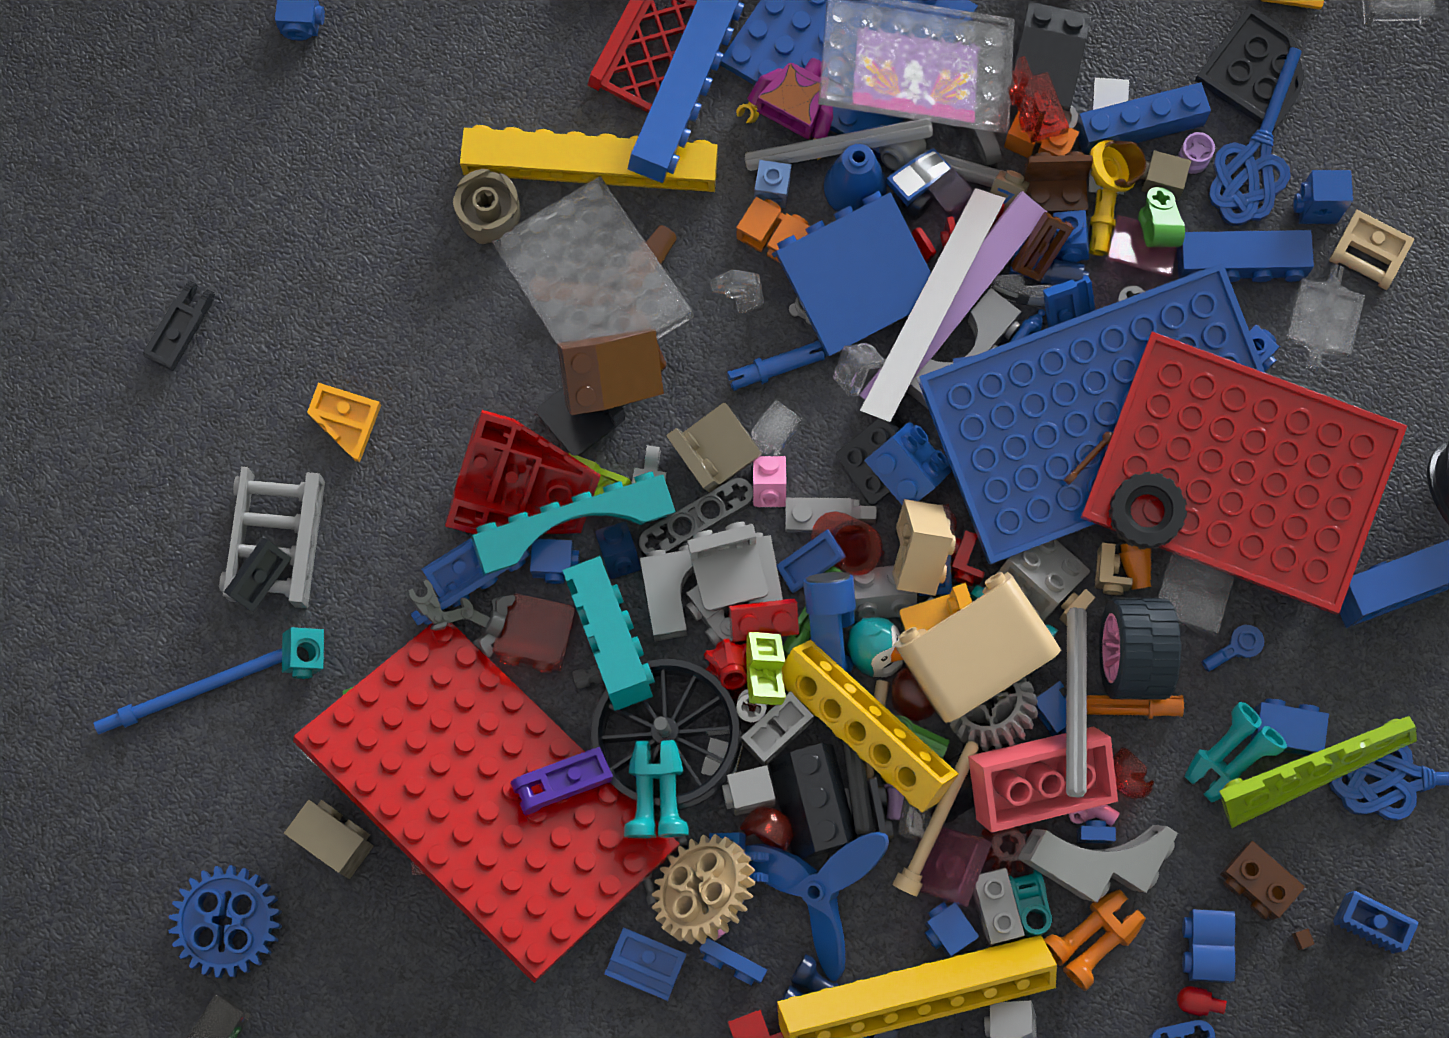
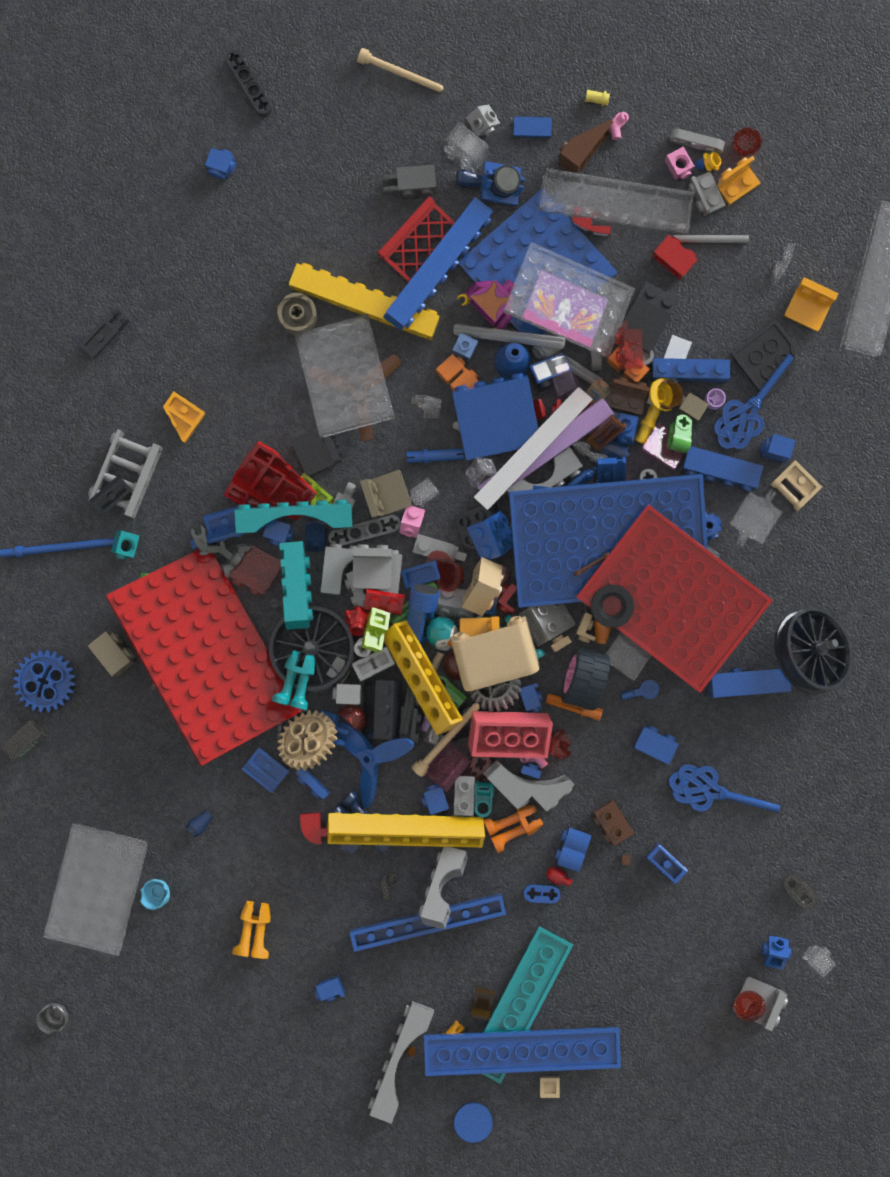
camera: 10 degrees right, 10 degrees up
(562, 780) = (247, 660): dark purple plate -> none
(610, 371) = (337, 437): reddish brown slope -> none
(1076, 703) = (540, 699): light grey axle -> none
(1244, 723) = (629, 736): teal piece -> none
(1280, 785) = (622, 777): lime wing -> none

